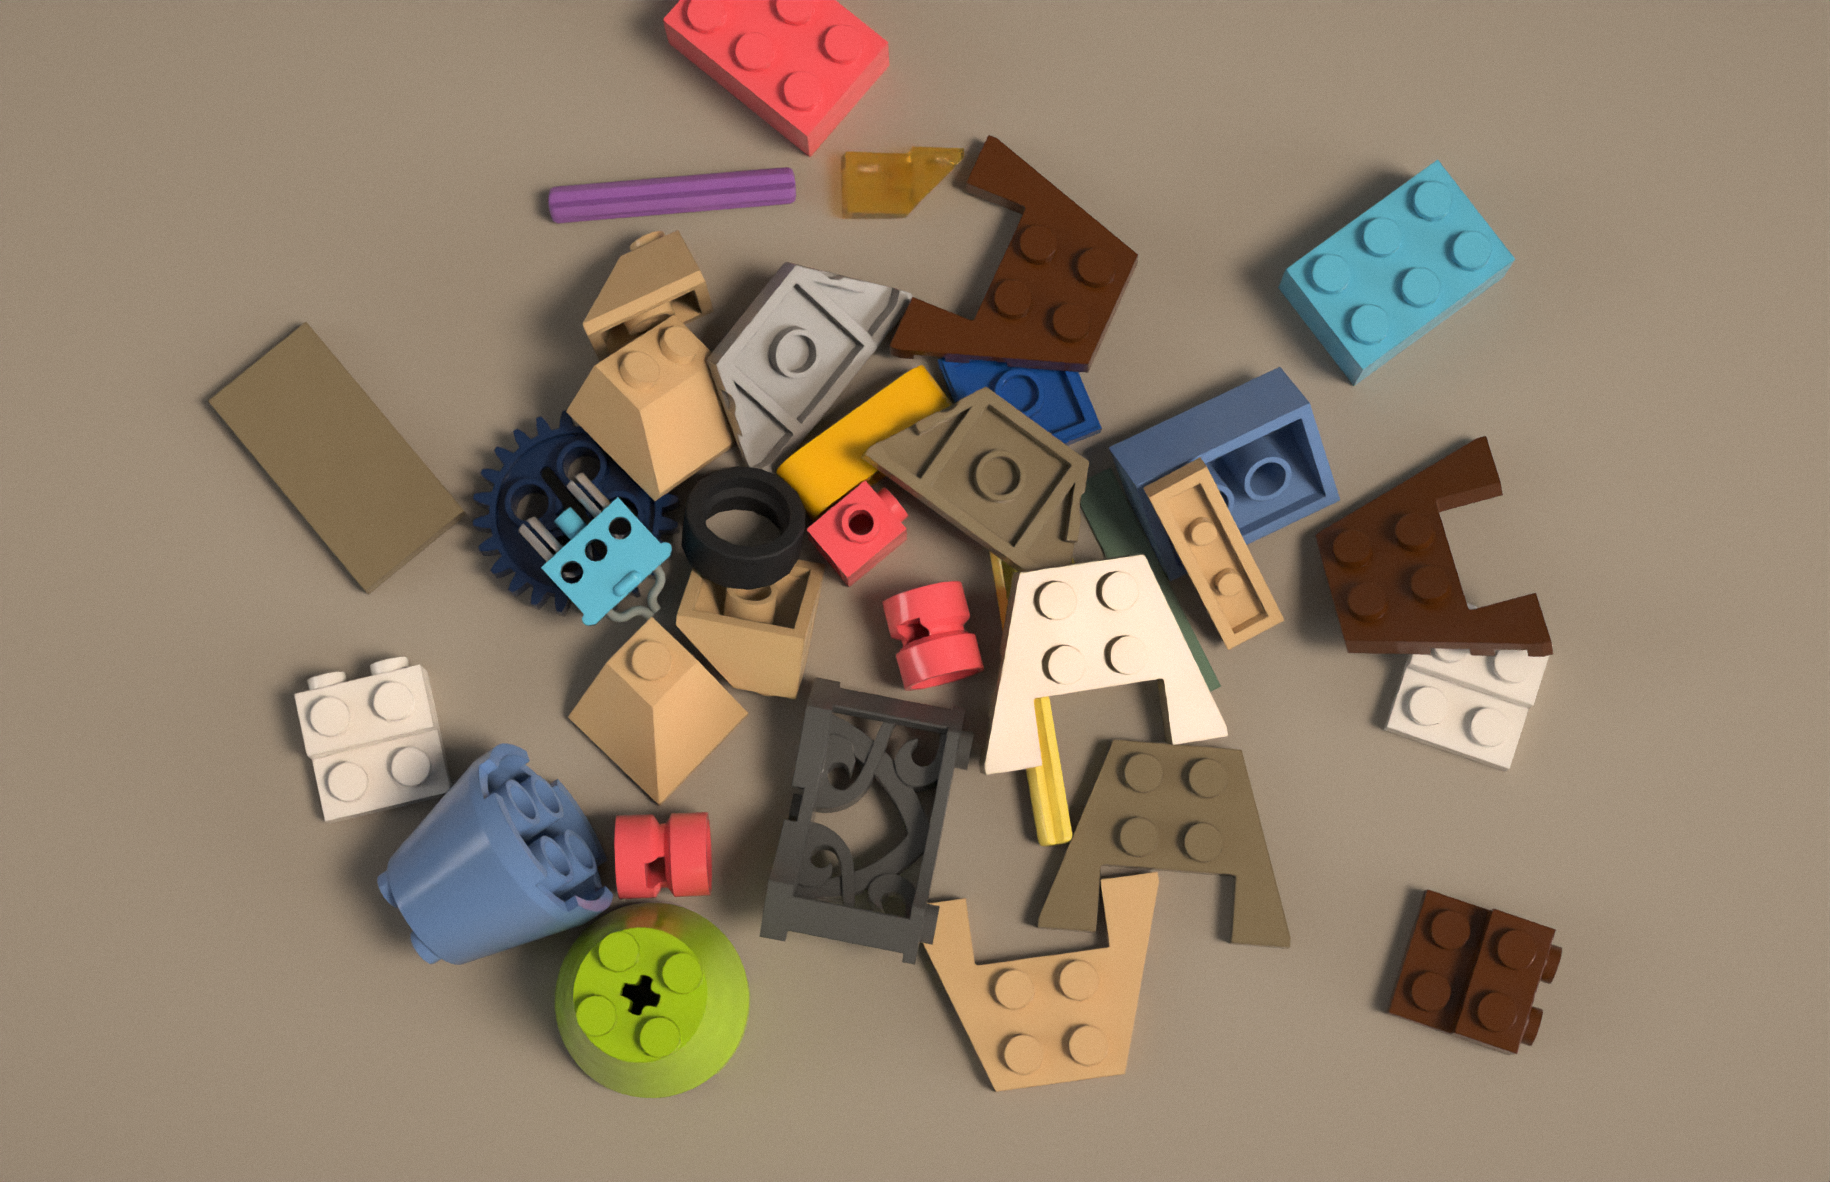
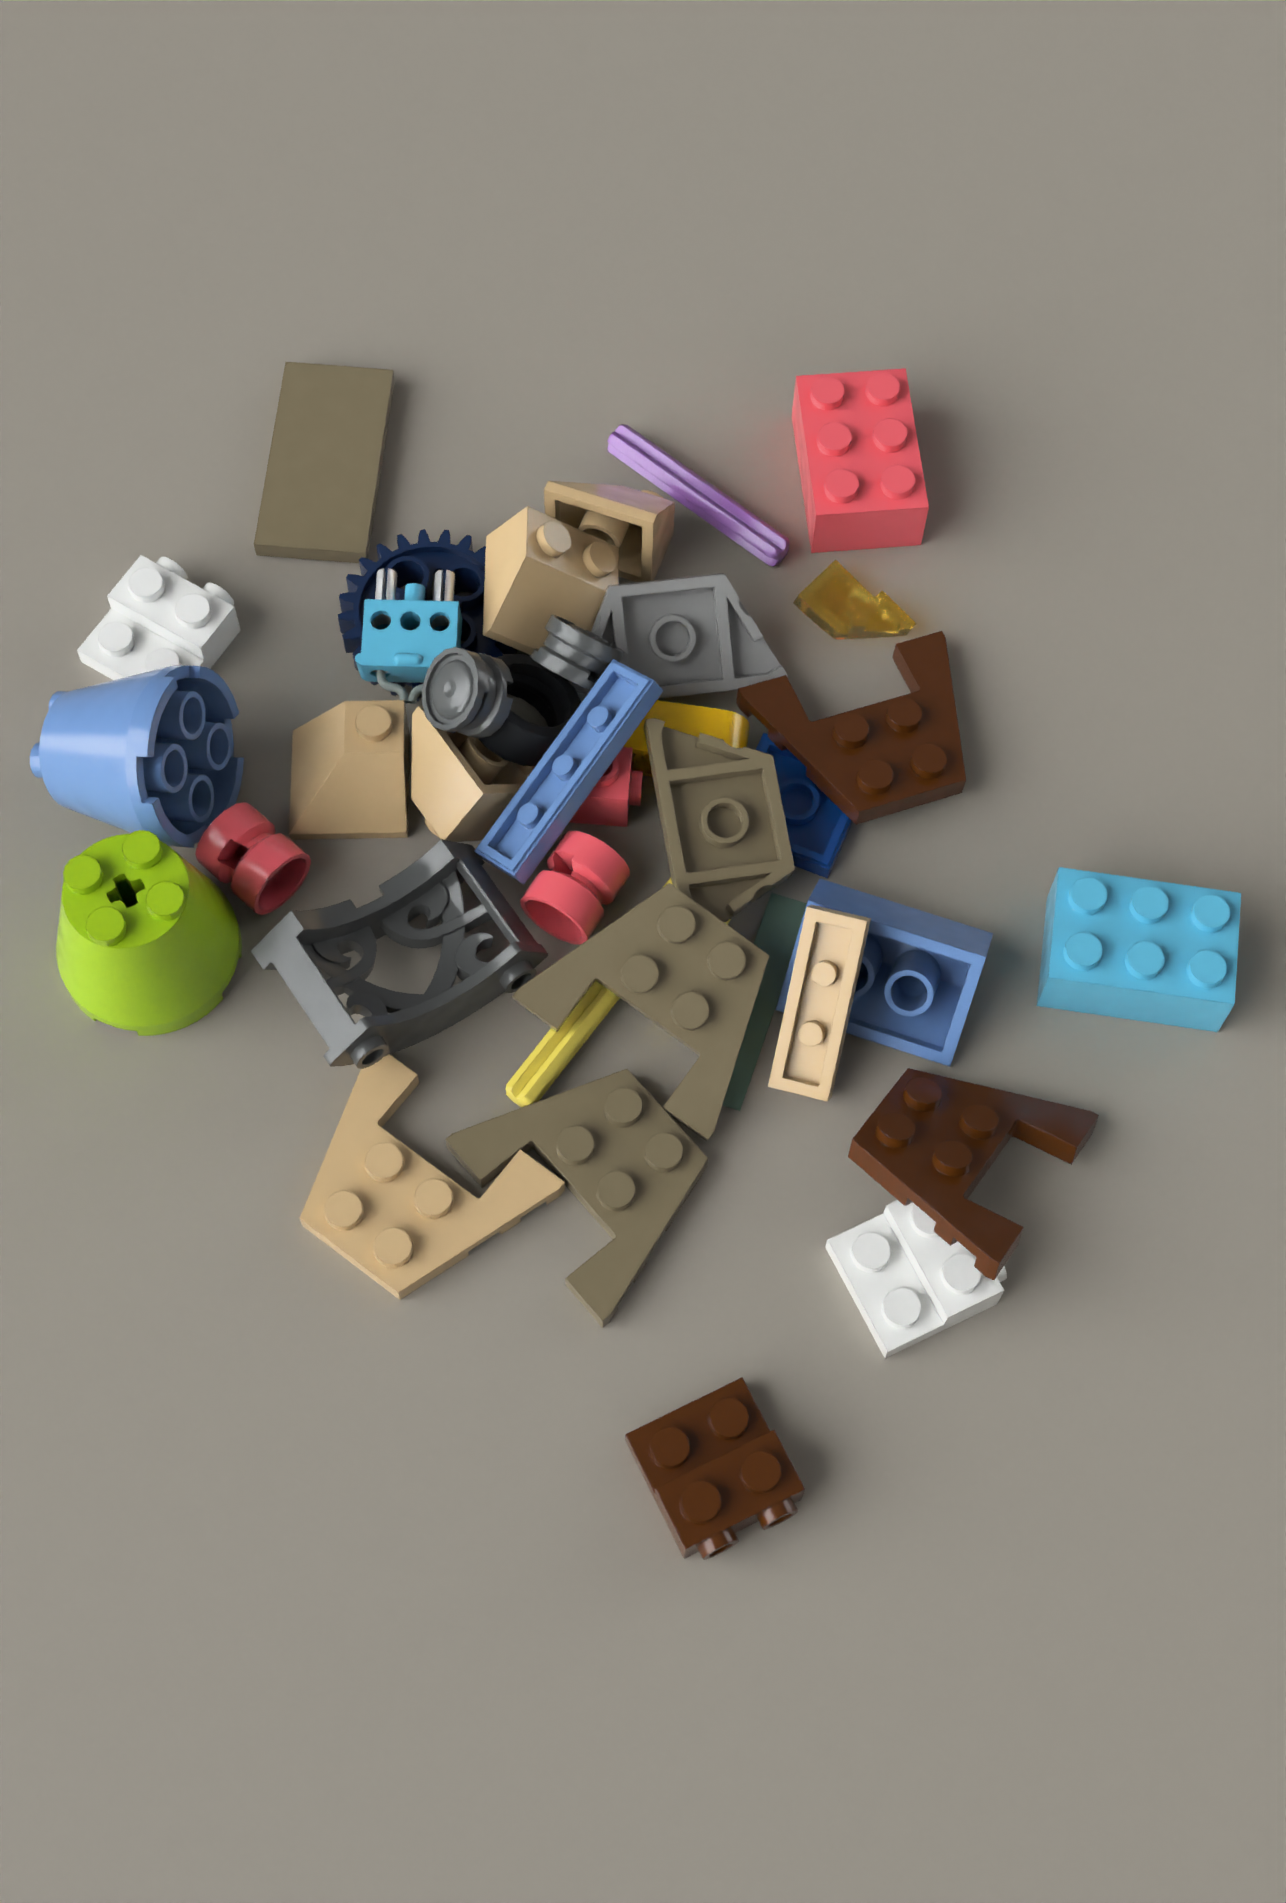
camera: 40 degrees right, 15 degrees down
(709, 570) = (466, 693): none -> dark grey wheel
(751, 448) = (575, 652): none -> dark grey wheel
(843, 551) = (568, 771): none -> medium blue tile

